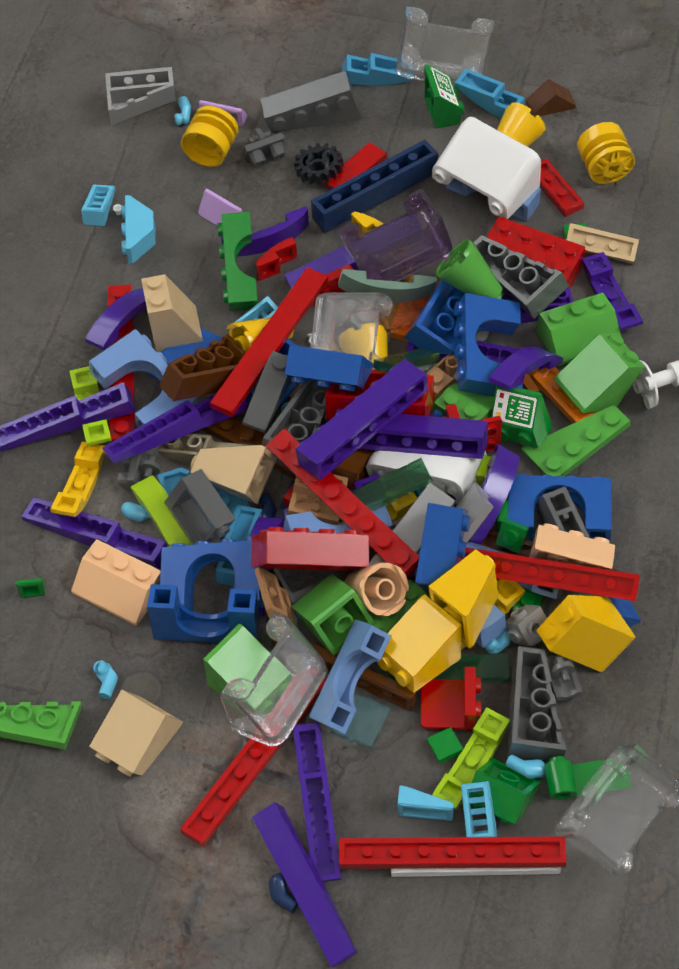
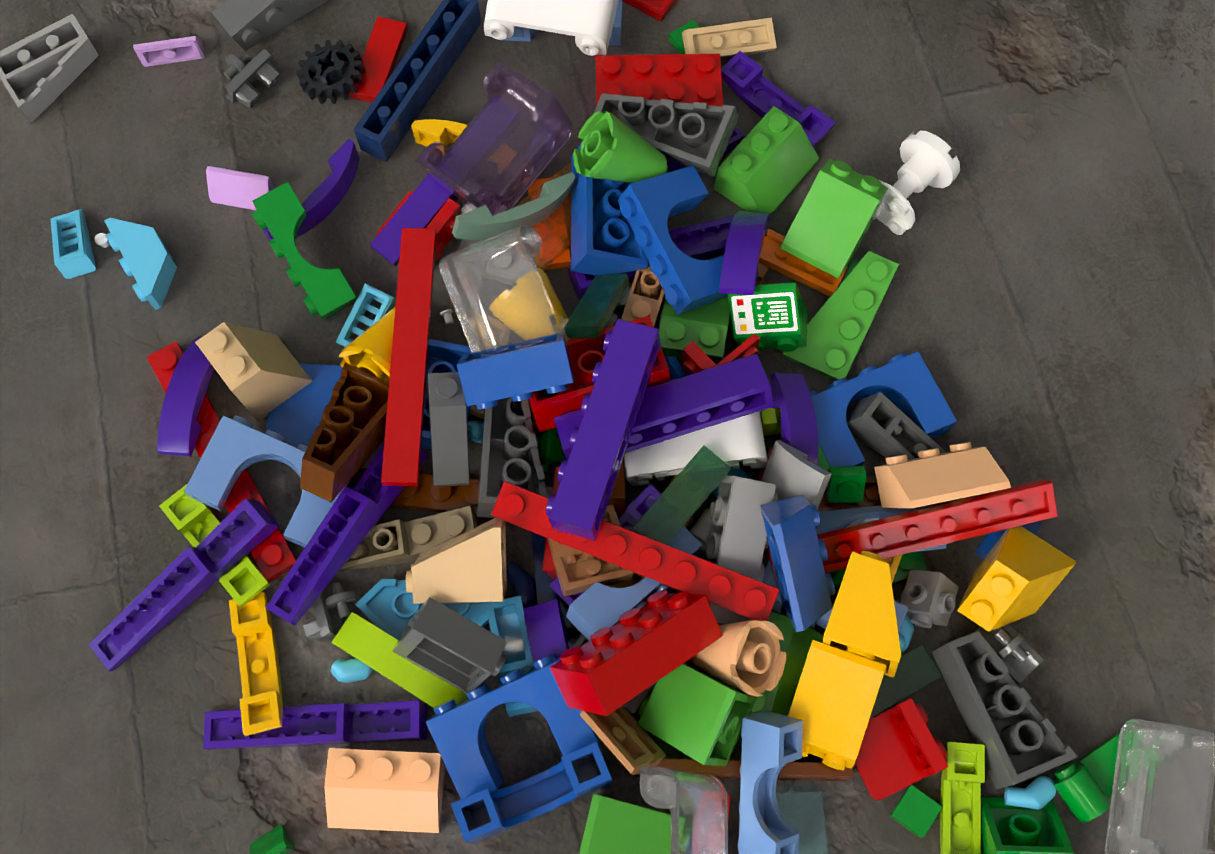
camera: 30 degrees left, 15 degrees up
(184, 116) = (118, 61): medium azure arm -> none
(209, 136) = (172, 90): yellow wheel -> none
(270, 262) = (342, 233): red slope -> none

